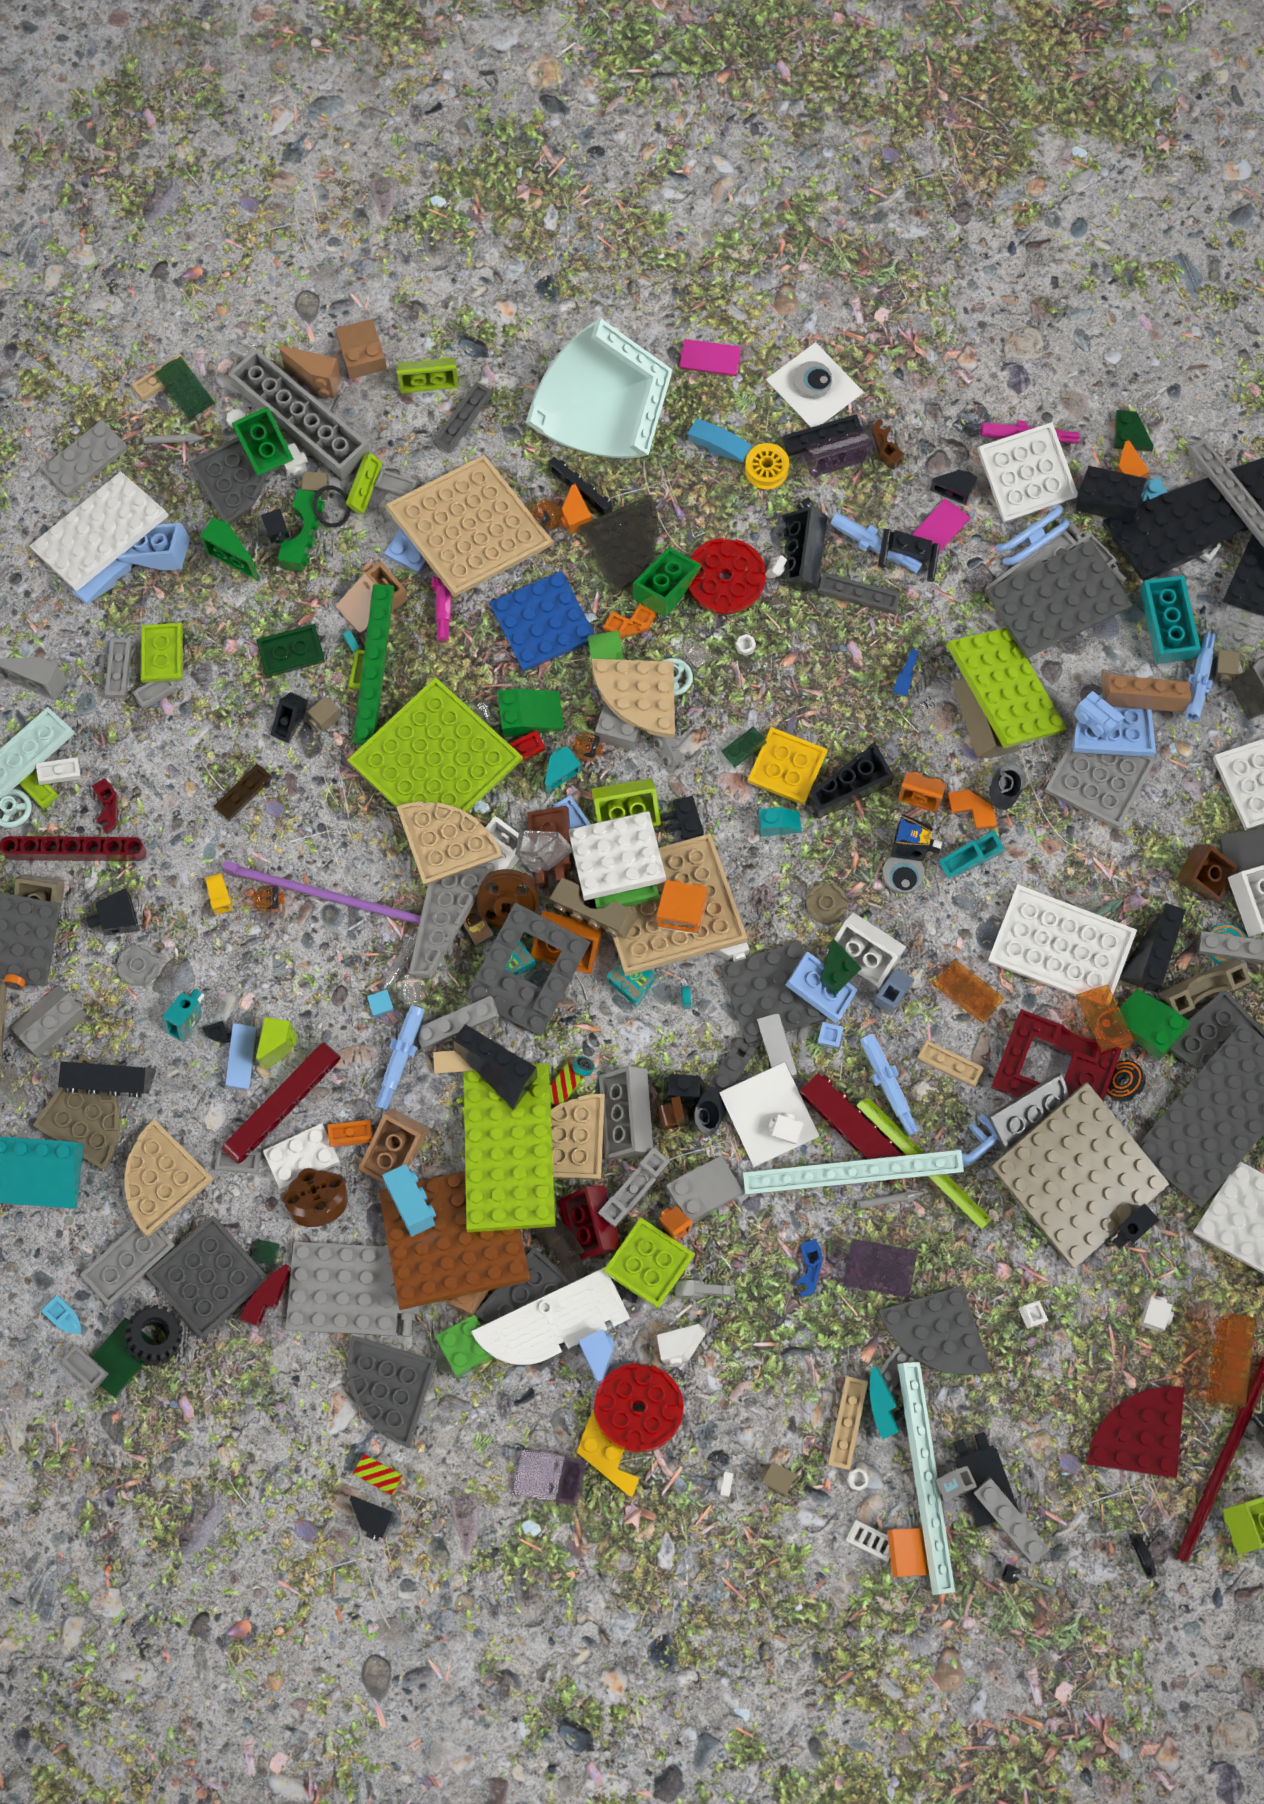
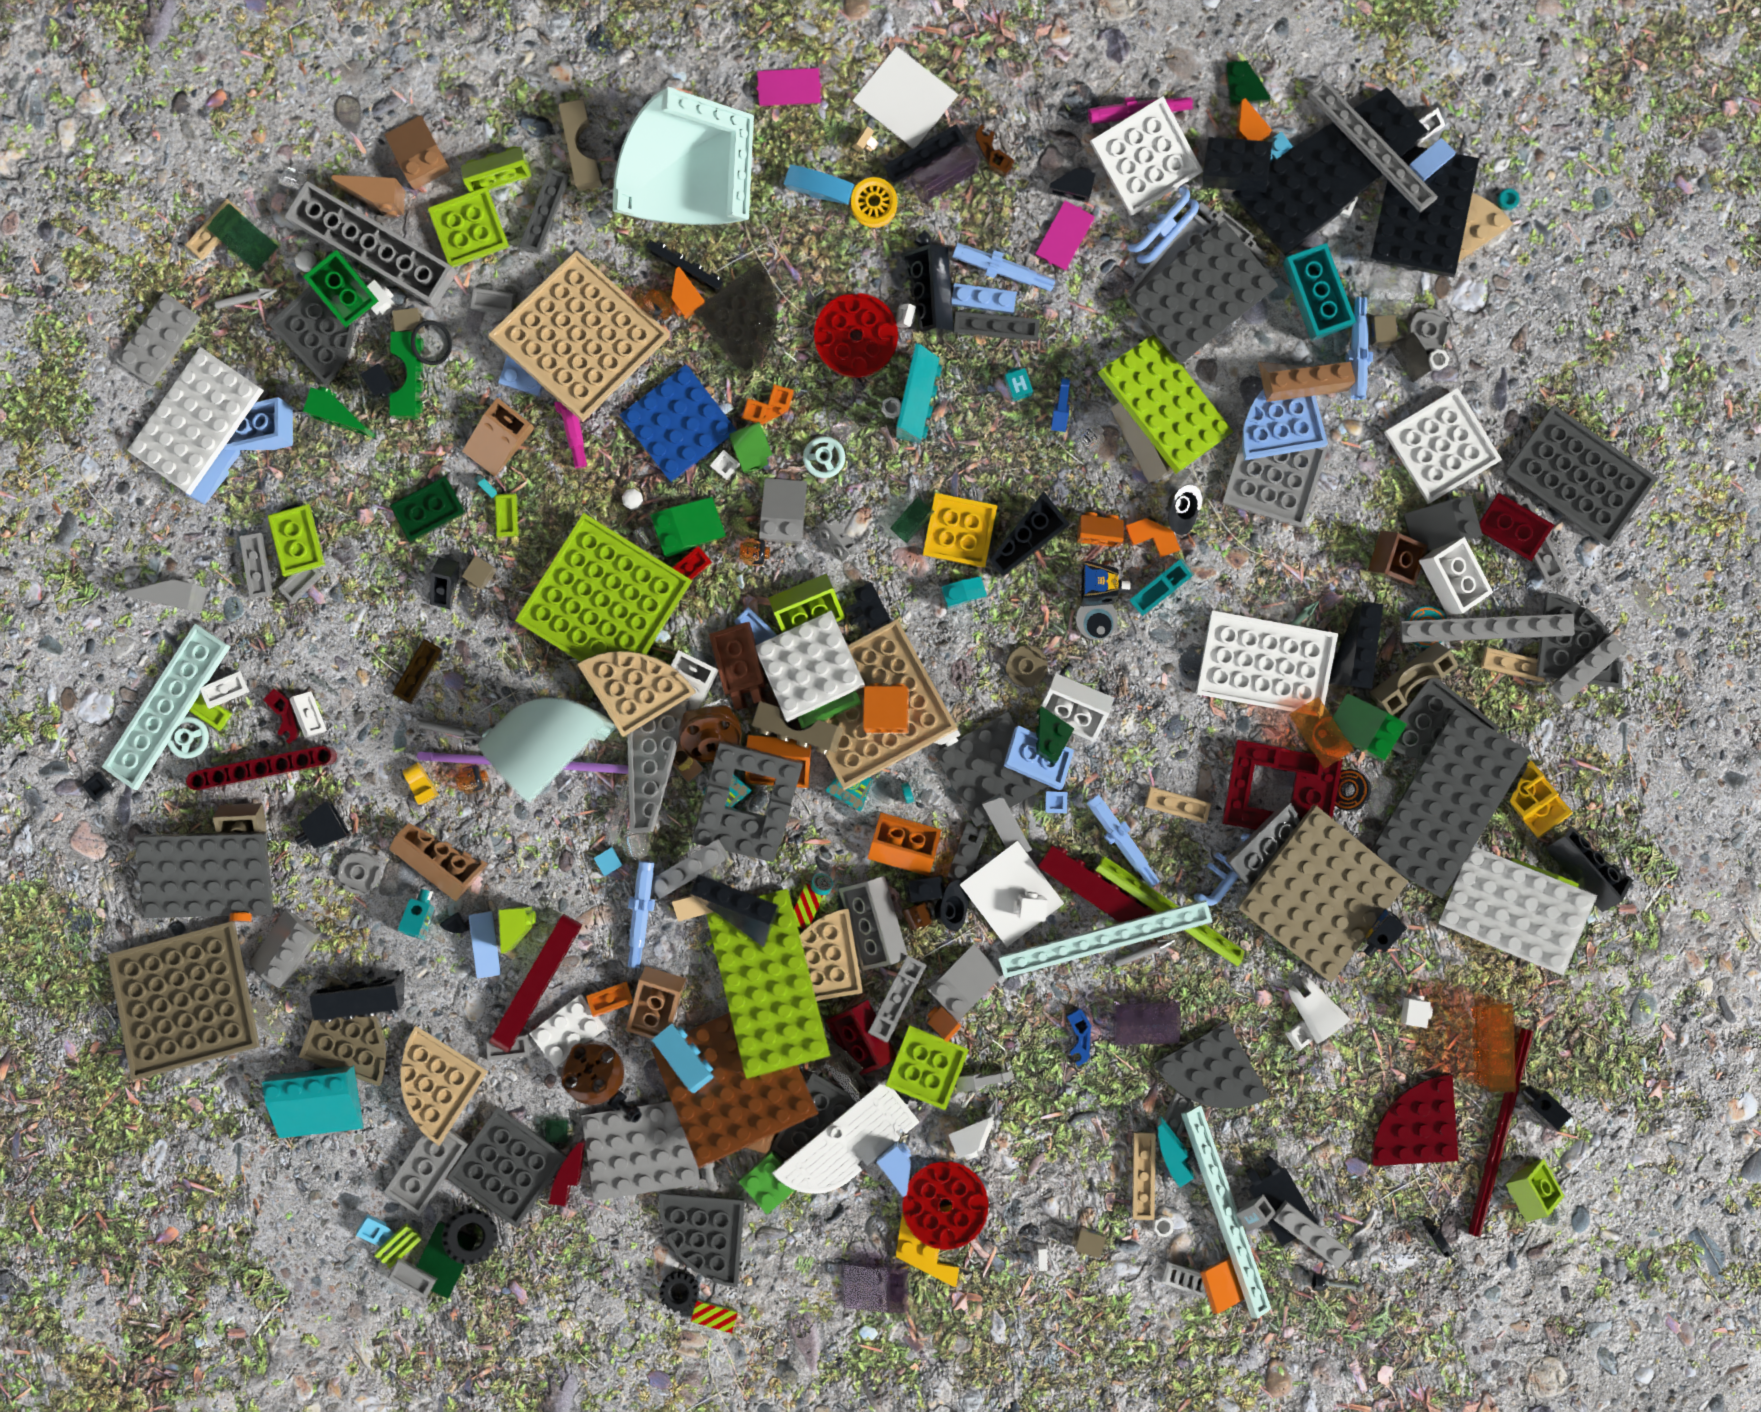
camera: 15 degrees left, 15 degrees up
(62, 1342) = (404, 1250): none -> lime tile
(130, 809) = (308, 714): none -> white plate
(216, 967) = (437, 860): none -> medium nougat wedge
(275, 857) = (466, 733): none -> light grey piece
(334, 1235) = (618, 1101): none -> black bar
(351, 858) = (540, 740): none -> light aqua panel
(362, 1440) = (679, 1304): none -> black tyre
(364, 483) = (458, 308): lime plate -> none
(372, 1518) = (717, 1358): black slope -> none
(373, 663) = (517, 509): green plate -> none
(391, 417) = (468, 227): none -> lime plate
(483, 678) = (632, 499): none -> white tile
(509, 348) = (575, 120): none -> dark tan arch
(541, 849) = (732, 680): clear slope -> none
(561, 768) = (732, 580): teal slope -> none
(577, 664) = (725, 465): none -> white plate
(638, 692) = (794, 487): tan plate -> none
(665, 581) = (796, 356): green slope -> none
(672, 1044) = (904, 844): none -> orange slope
(770, 413) = (865, 140): none -> tan tile
(772, 635) = (918, 395): none -> teal slope
(812, 379) = (902, 92): tile -> none
(851, 567) = (983, 298): none -> light blue plate
(869, 647) = (1018, 384): none -> teal brick
(893, 991) = (1110, 744): sand blue slope -> none
(910, 546) = (1039, 265): black plate -> none
(968, 991) = (1182, 728): clear orange piece -> none
(1056, 1292) = (1318, 1011): none -> white piece
(1098, 715) = (1265, 418): light blue brick -> none

